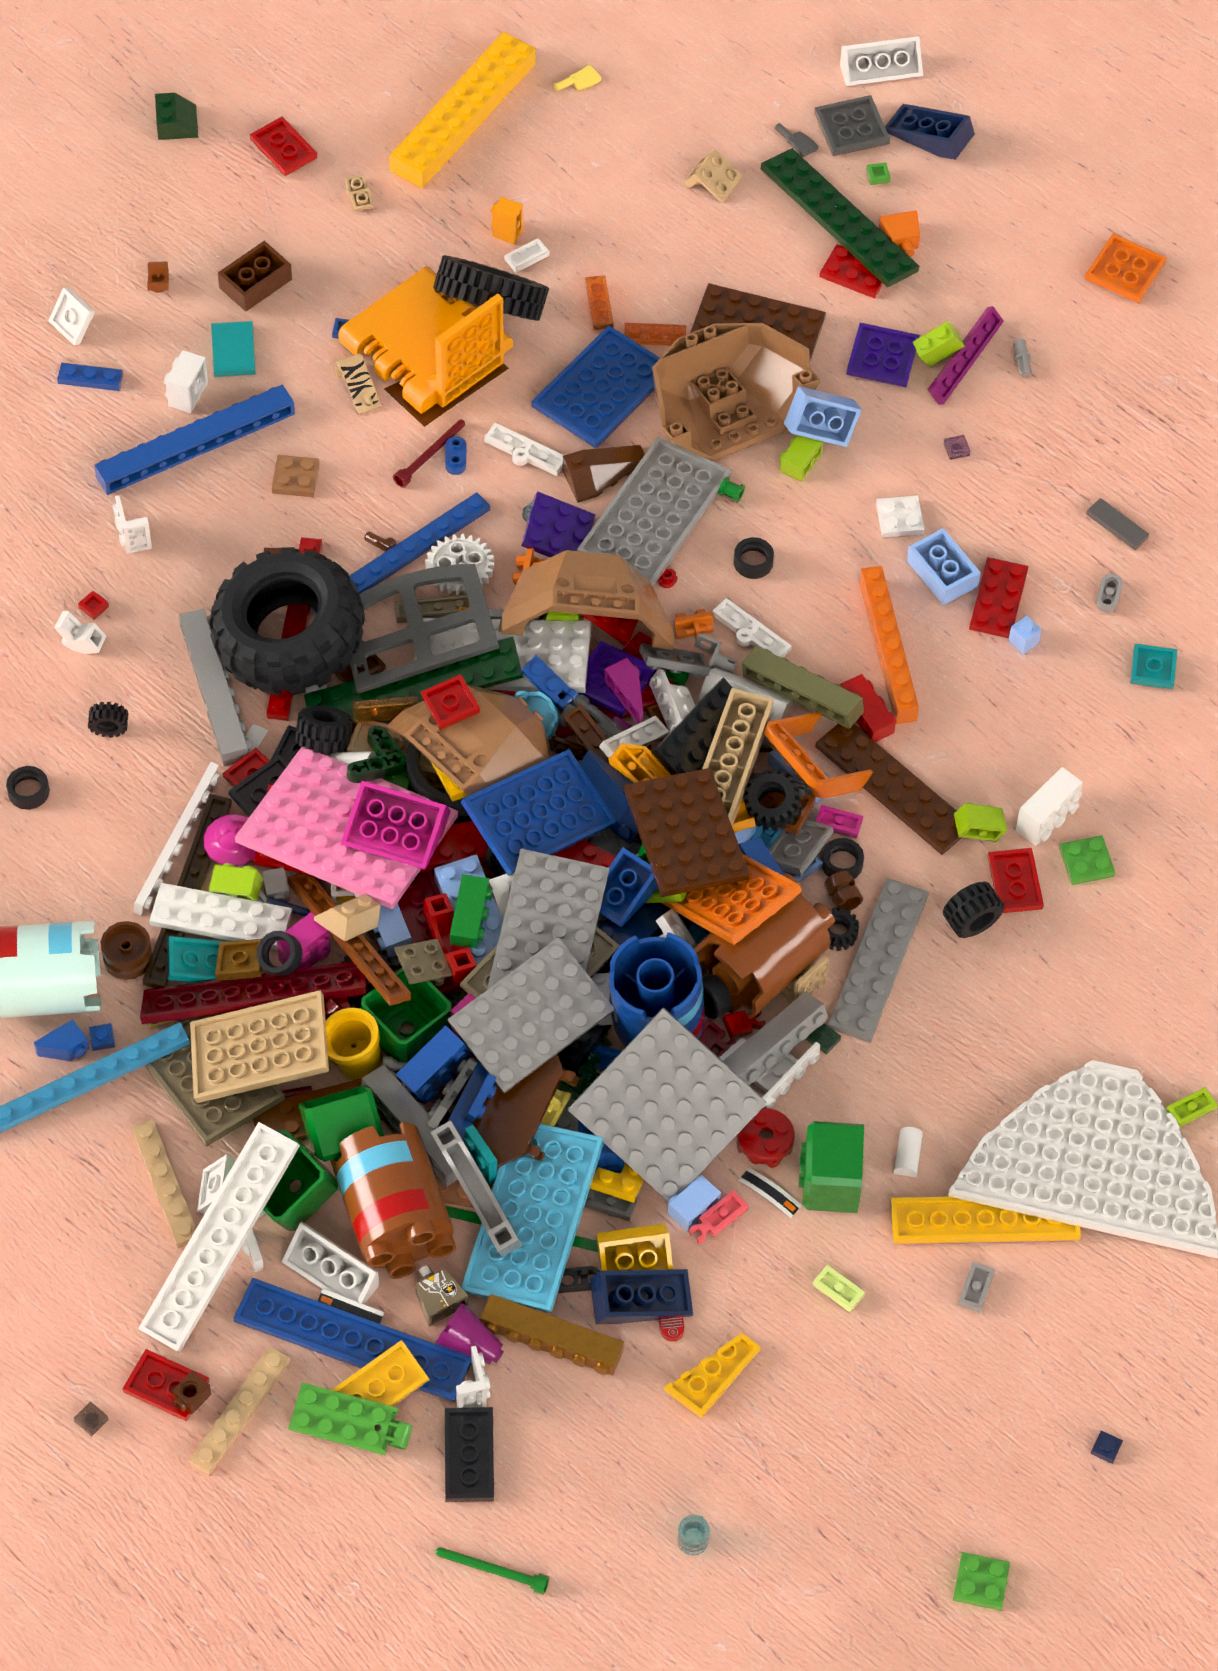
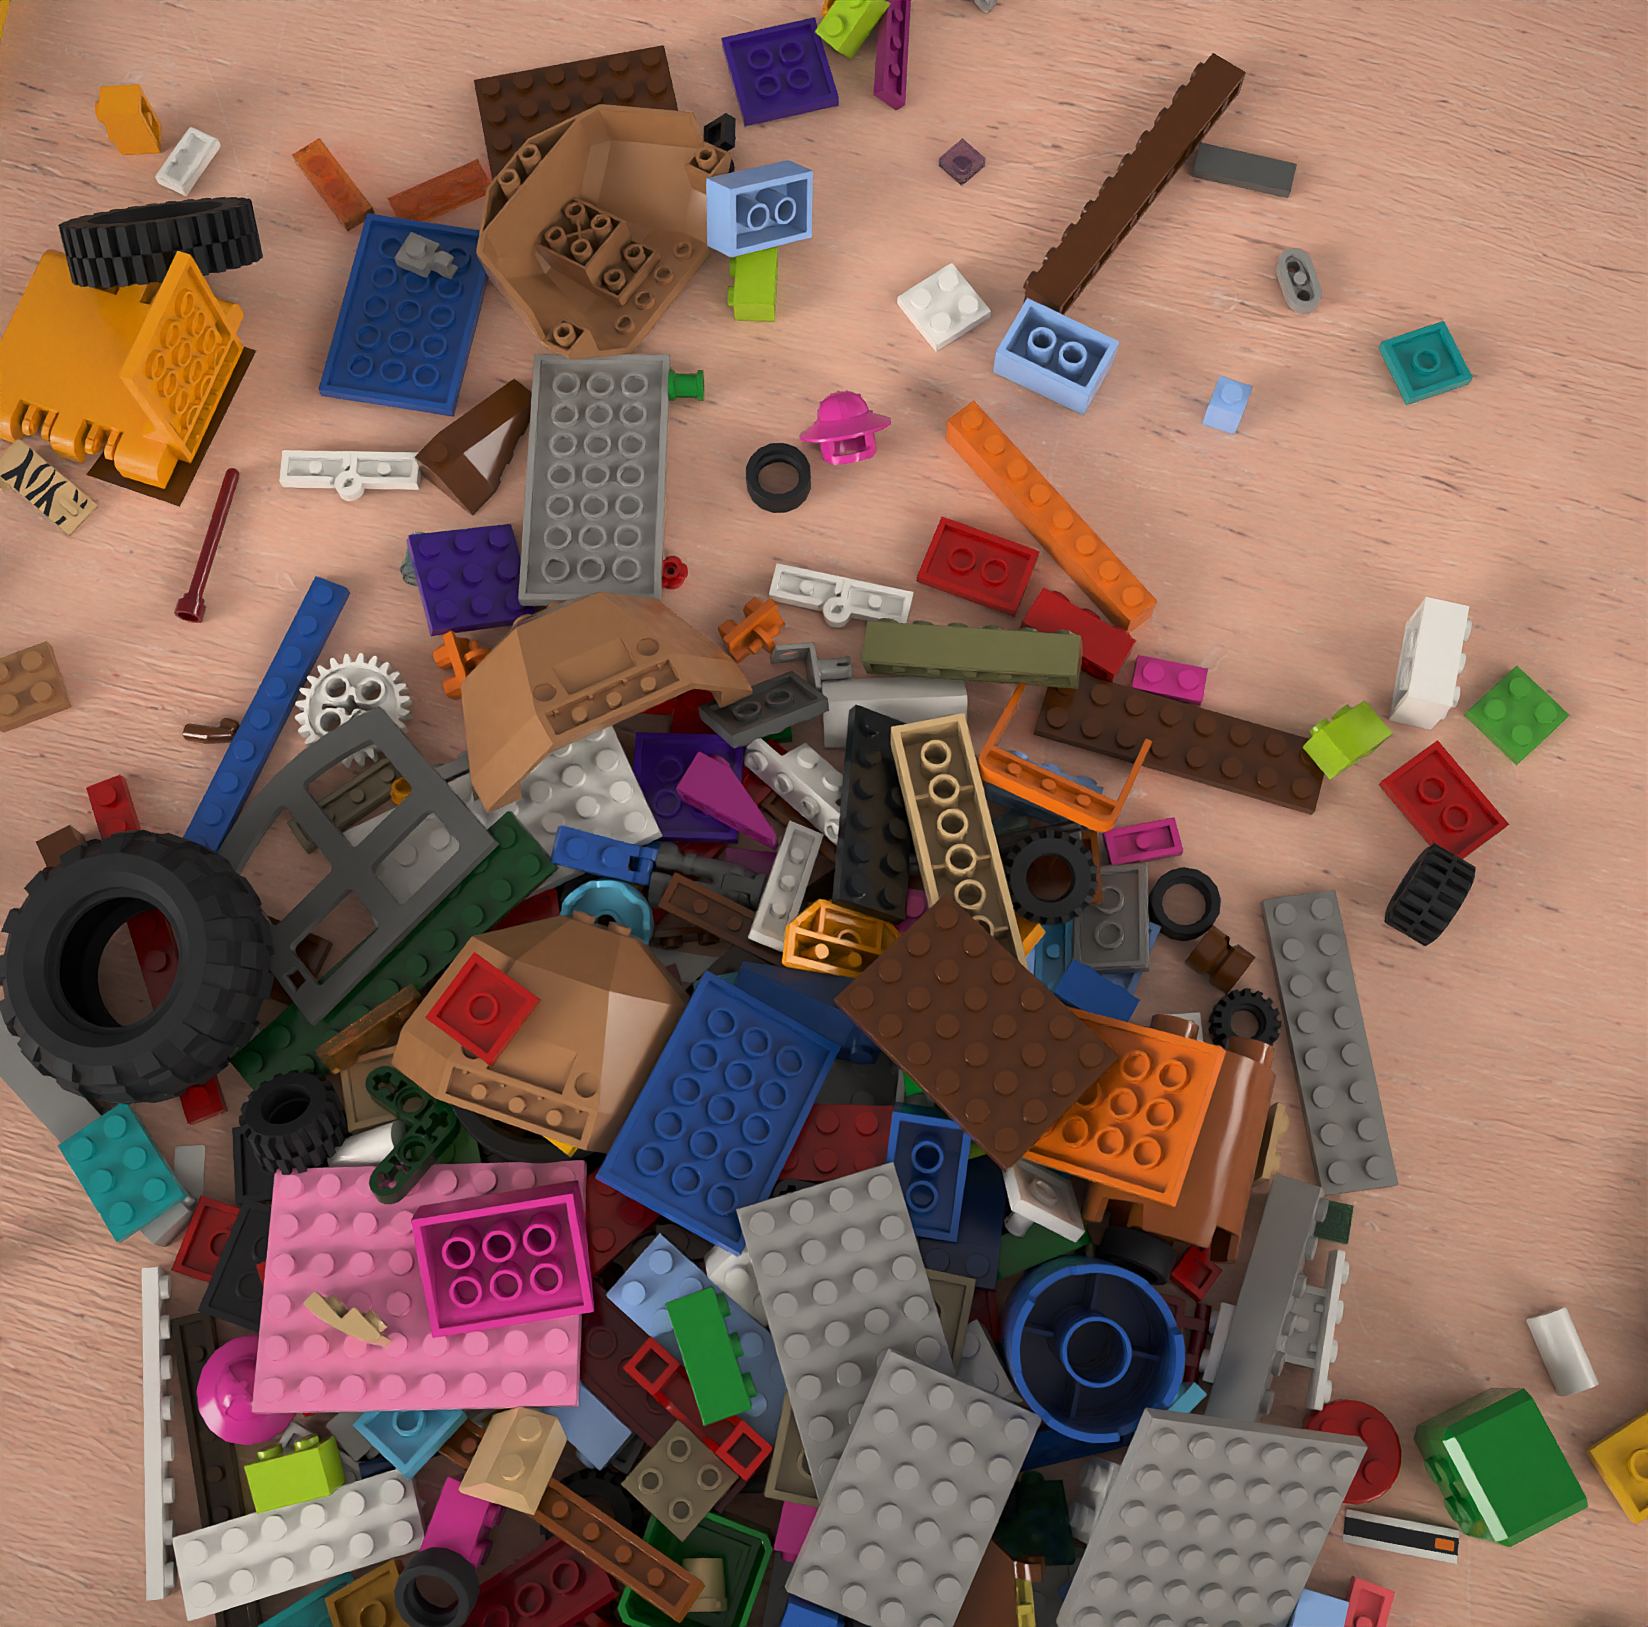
camera: 25 degrees left, 15 degrees up
(226, 714) = (122, 1171): none -> teal plate
(303, 887) = (409, 1436): none -> medium azure plate
(305, 816) = (360, 1325): none -> tan slope
(405, 1023) = (711, 1573): none -> tan piece
(455, 453) = (250, 528): blue plate -> none
(625, 359) = (424, 255): none -> light grey plate
(803, 546) = (845, 425): none -> dark pink helmet
(827, 374) = (722, 134): none -> black plate
(835, 650) = (978, 566): none -> red plate
(906, 754) = (1170, 679): none -> dark pink plate
(998, 597) = (1152, 364): red plate -> none
(1047, 503) = (1135, 185): none -> reddish brown brick

